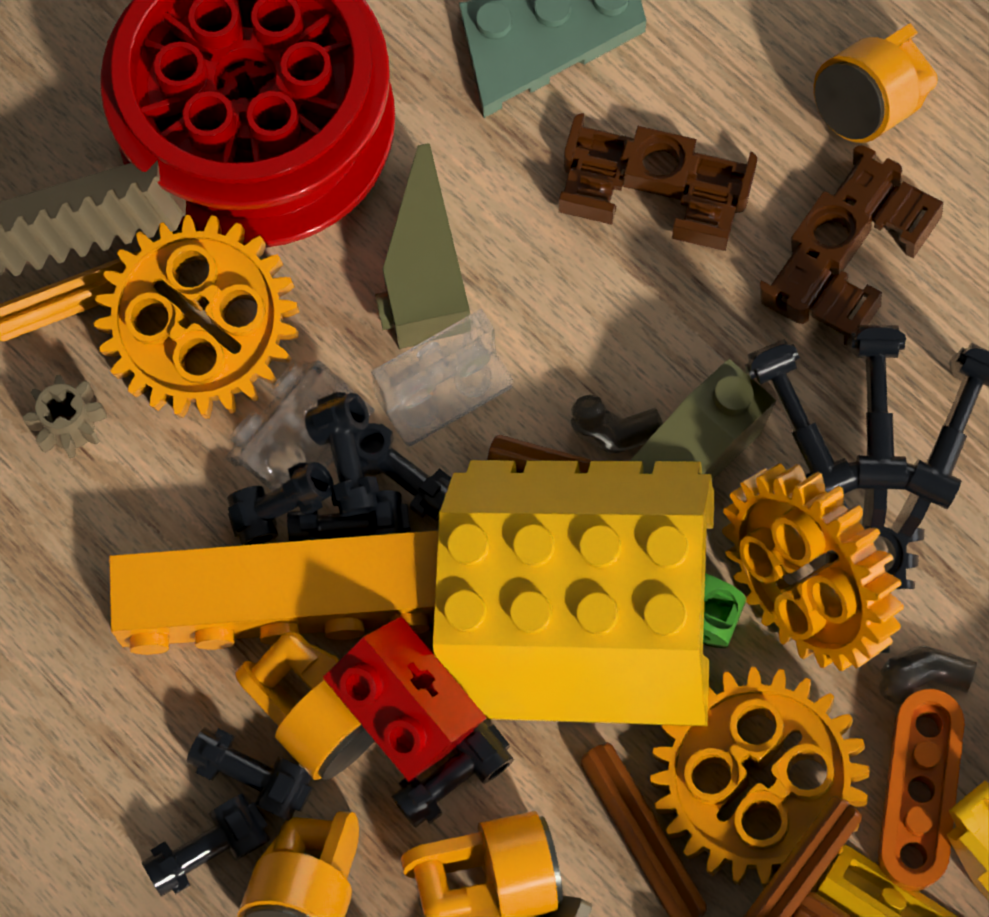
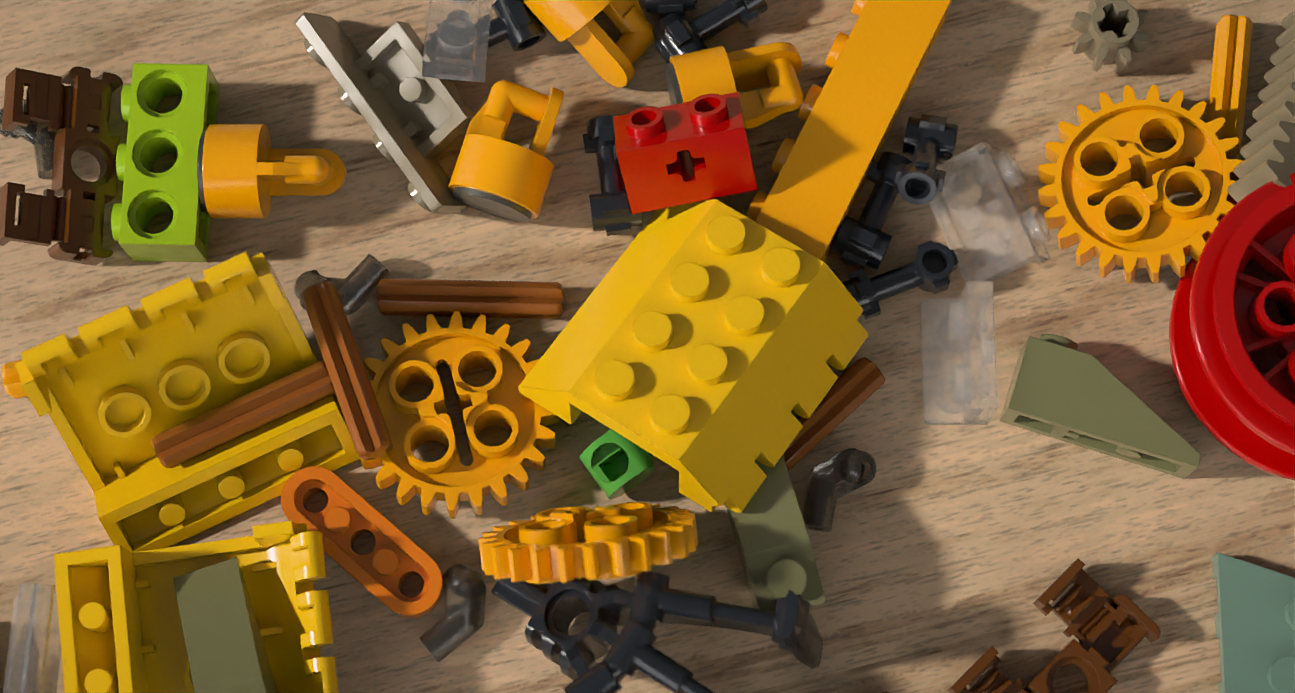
camera: 120 degrees right, 5 degrees up
(335, 422) = (963, 238): black bar -> none

